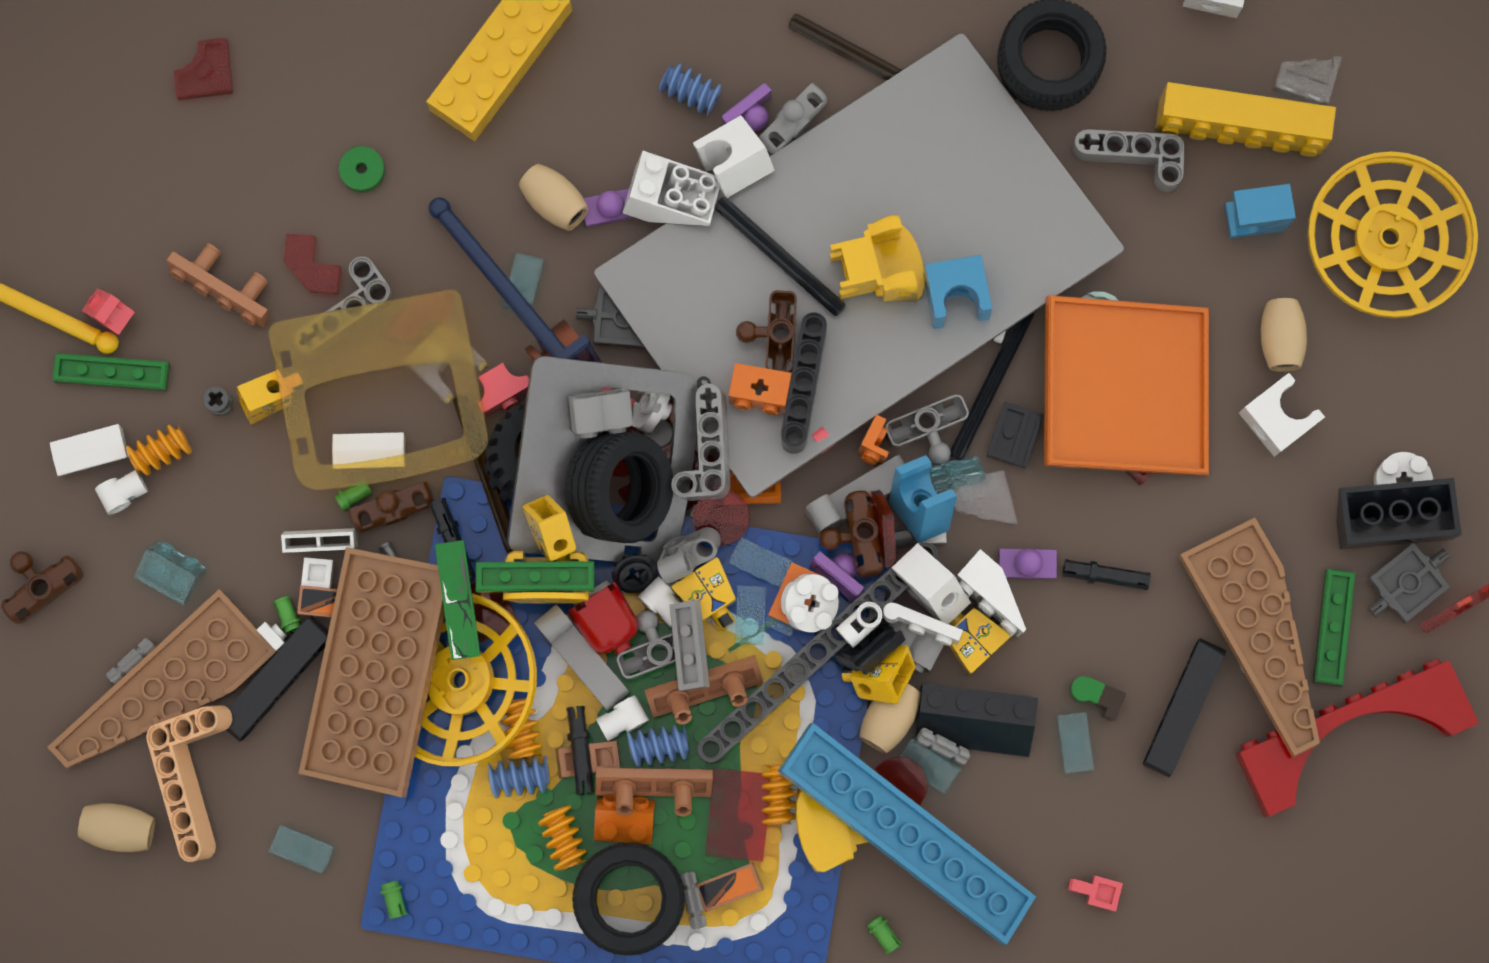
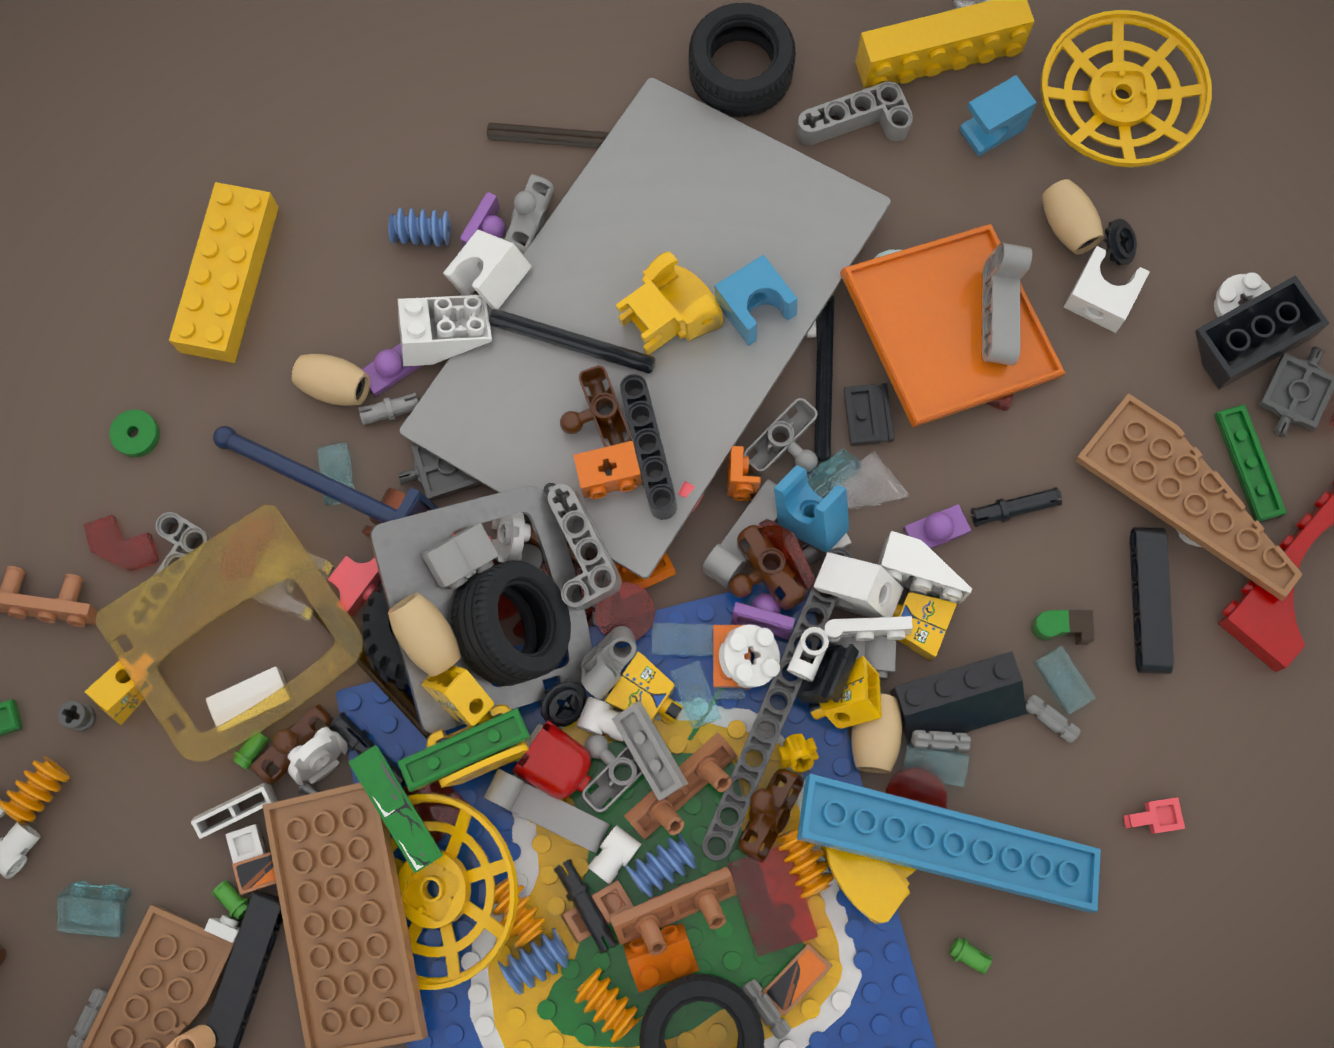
camera: 20 degrees left, 5 degrees down
(407, 527) = (316, 757): none -> white plate
(542, 466) = (424, 634): none -> tan piece
(593, 245) = (388, 409): none -> light grey pin
(767, 742) = (769, 813): none -> reddish brown piece
(815, 702) = (798, 753): none -> yellow gear
(1048, 770) = (1052, 719): none -> light grey axle
(1177, 389) = (1002, 302): none -> light grey beam
(1322, 383) = (1121, 250): none -> black gear

